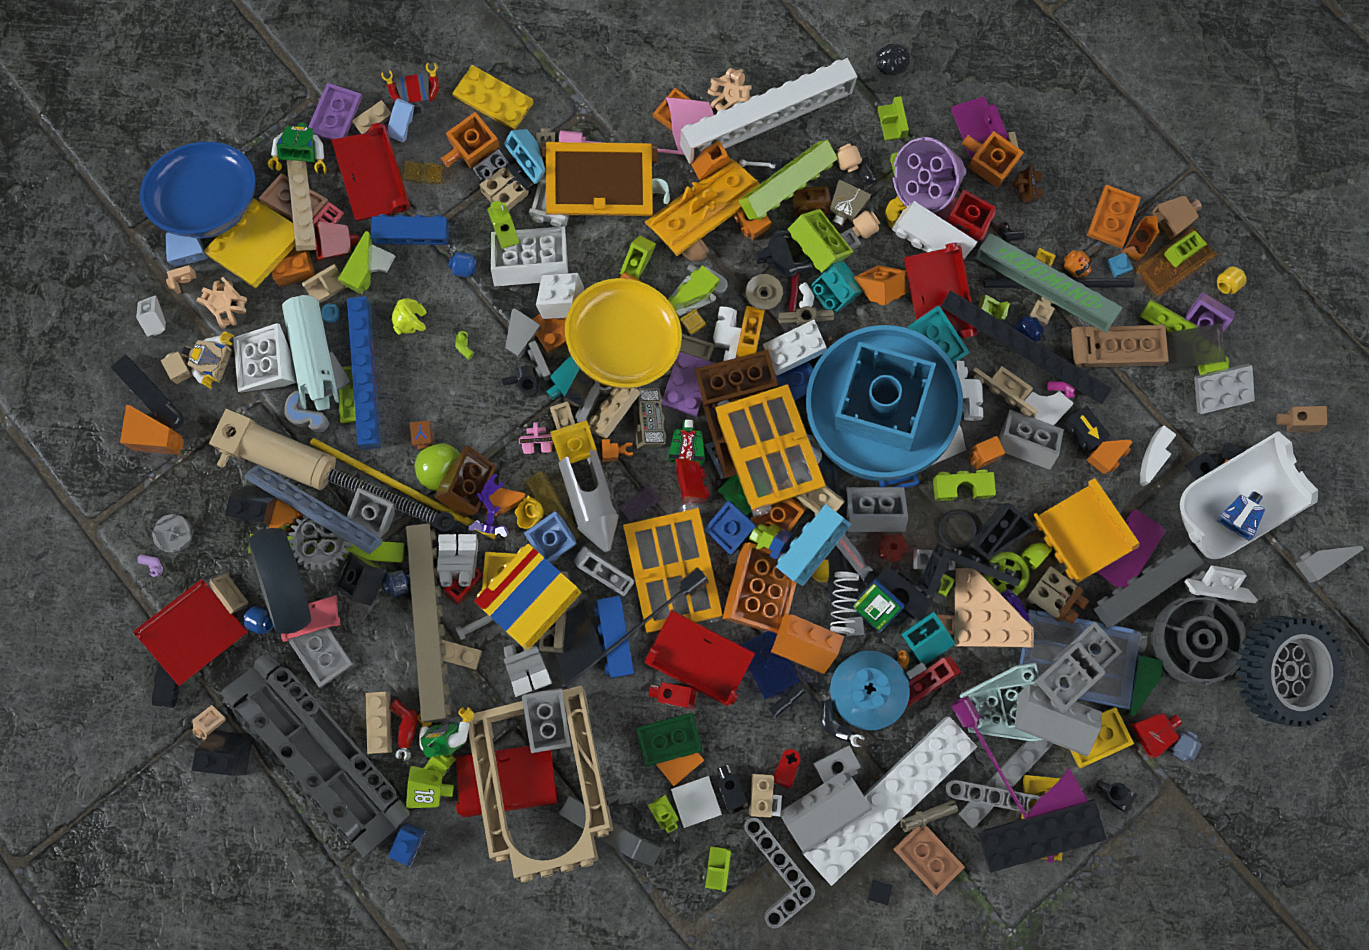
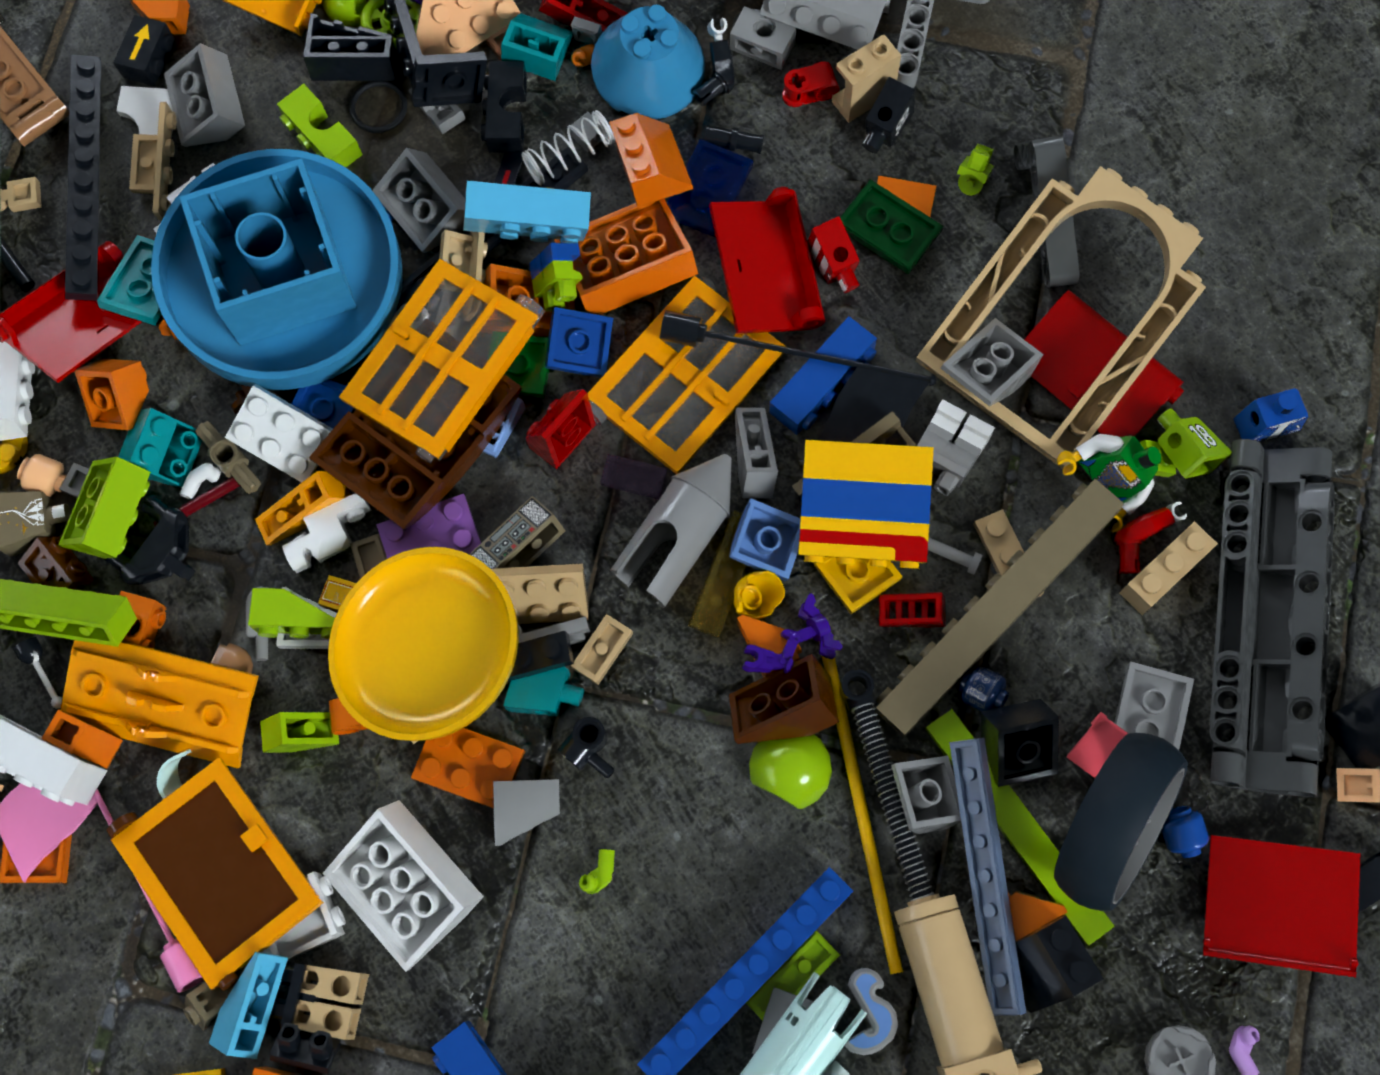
camera: 120 degrees left, 5 degrees down
(228, 593) = (1187, 904): tan plate -> none
(319, 557) = (1037, 814): light grey gear -> none
(405, 318) = (625, 982): neon yellow helmet -> none
(421, 435) = (768, 821): dark orange brick -> none
(457, 558) = (896, 626): light grey hips -> none
(462, 264) = (484, 967): blue head -> none
(500, 216) = (381, 961): lime torso -> none
(528, 441) = (649, 666): bright pink hips -> none
(535, 354) = (550, 736): light grey plate -> none
(557, 294) = (431, 786): white brick -> none
(573, 441) = (620, 610): yellow plate -> none
(611, 451) = (594, 558): orange piece -> none
(687, 444) = (513, 473): torso -> none
(696, 801) = (931, 152): white tile -> none
(718, 868) = (981, 74): lime panel -> none
(764, 283) = (221, 523): dark tan dish -> none
(877, 606) = (541, 115): tile -> none
(899, 545) = (457, 149): clear red brick -> none
(986, 453) = (256, 124): orange brick -> none
(993, 307) = (54, 247): lime bracket -> none
(1031, 328) = (52, 189): clear blue head -> none
(1061, 386) = (107, 107): dark pink arm -> none

